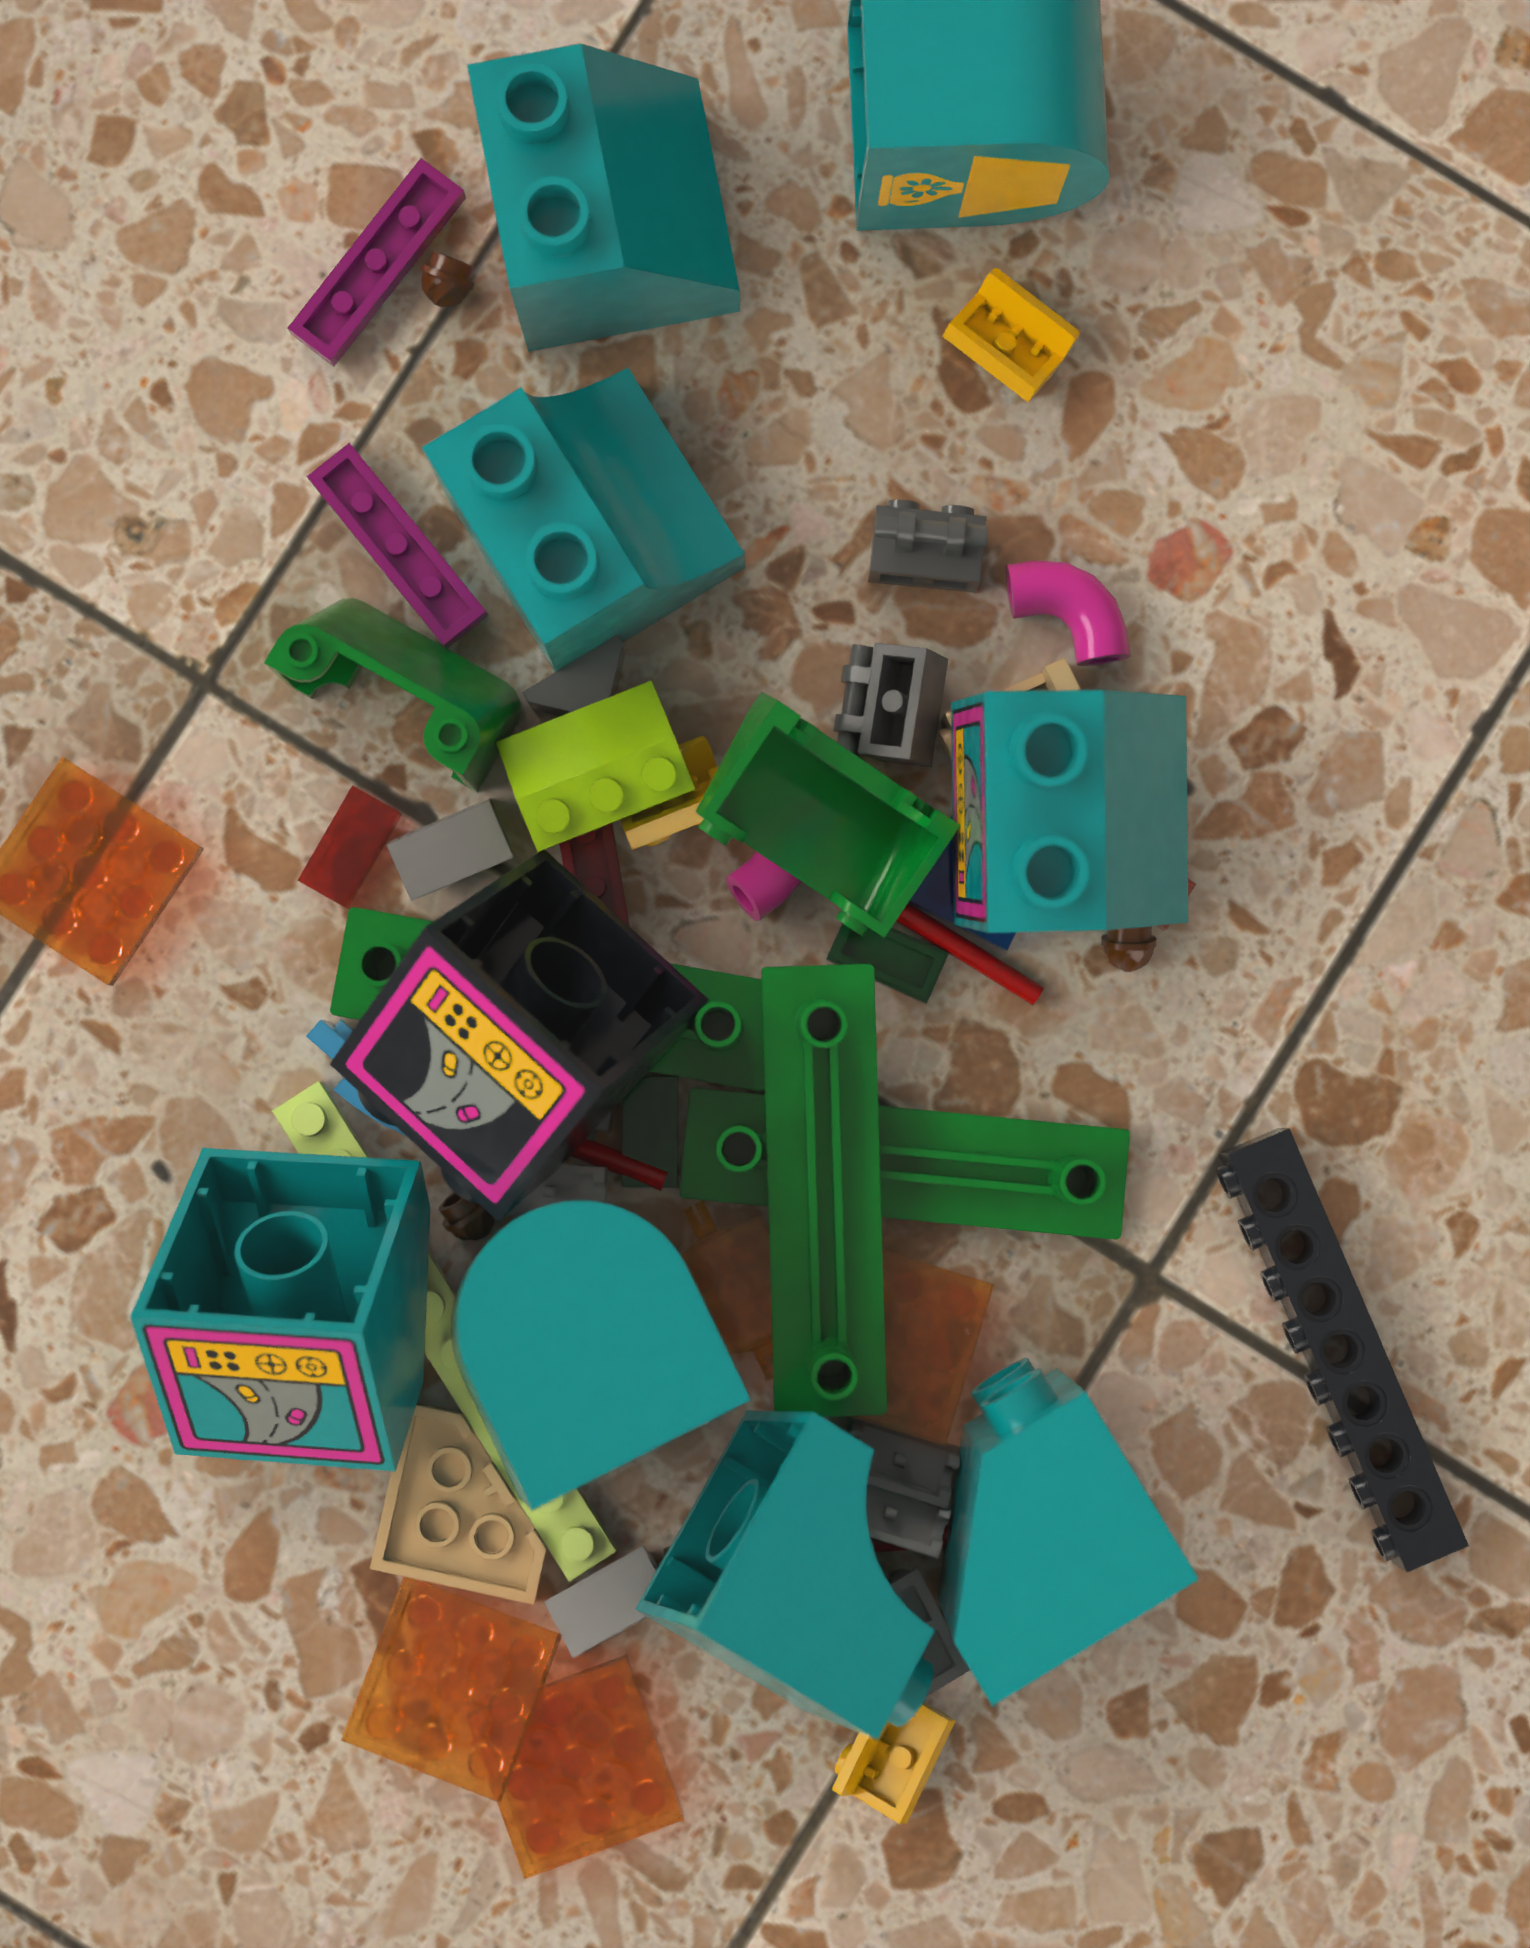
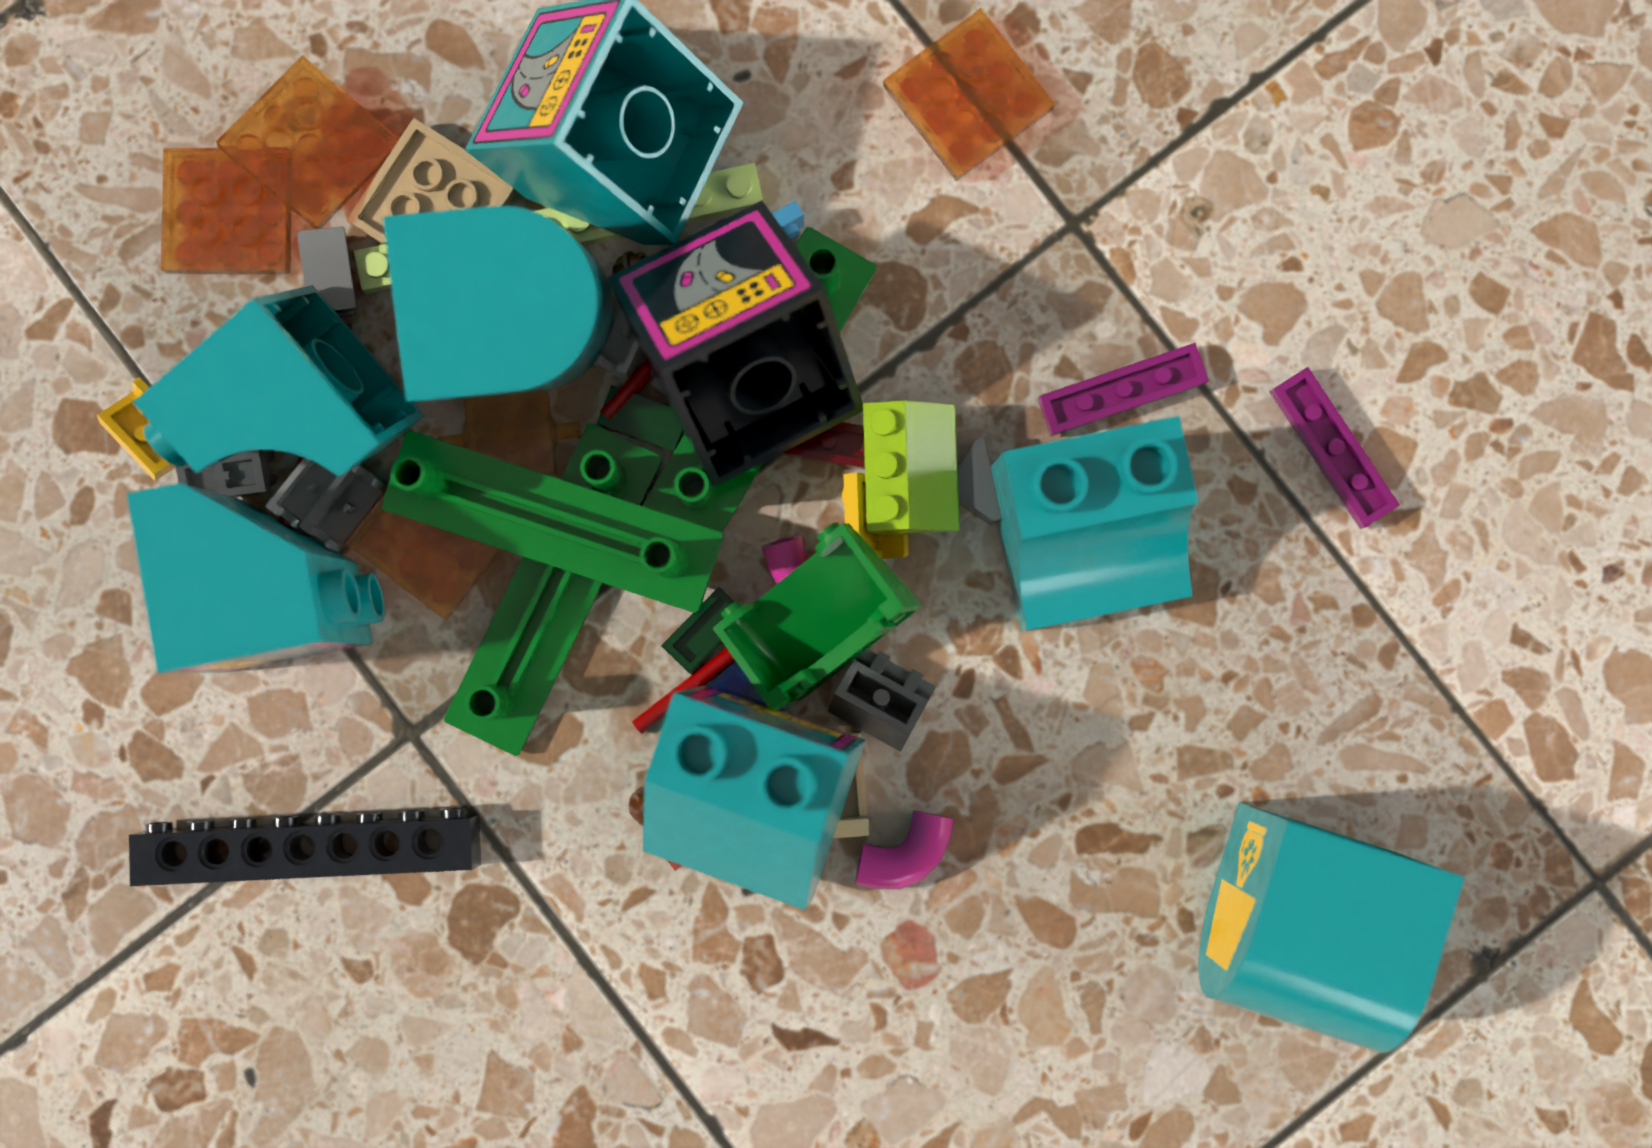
camera: 110 degrees right, 0 degrees up
(350, 847) = (920, 282): clear red tile -> none
(446, 280) = (1304, 492): reddish brown plate -> none
(450, 849) = (892, 349): light grey hinge -> none
(469, 702) = (996, 393): green windscreen -> none
(602, 194) = (1327, 620): teal slope -> none
(927, 546) = (987, 767): dark grey brick -> none
(1012, 334) = (1120, 885): yellow bracket -> none

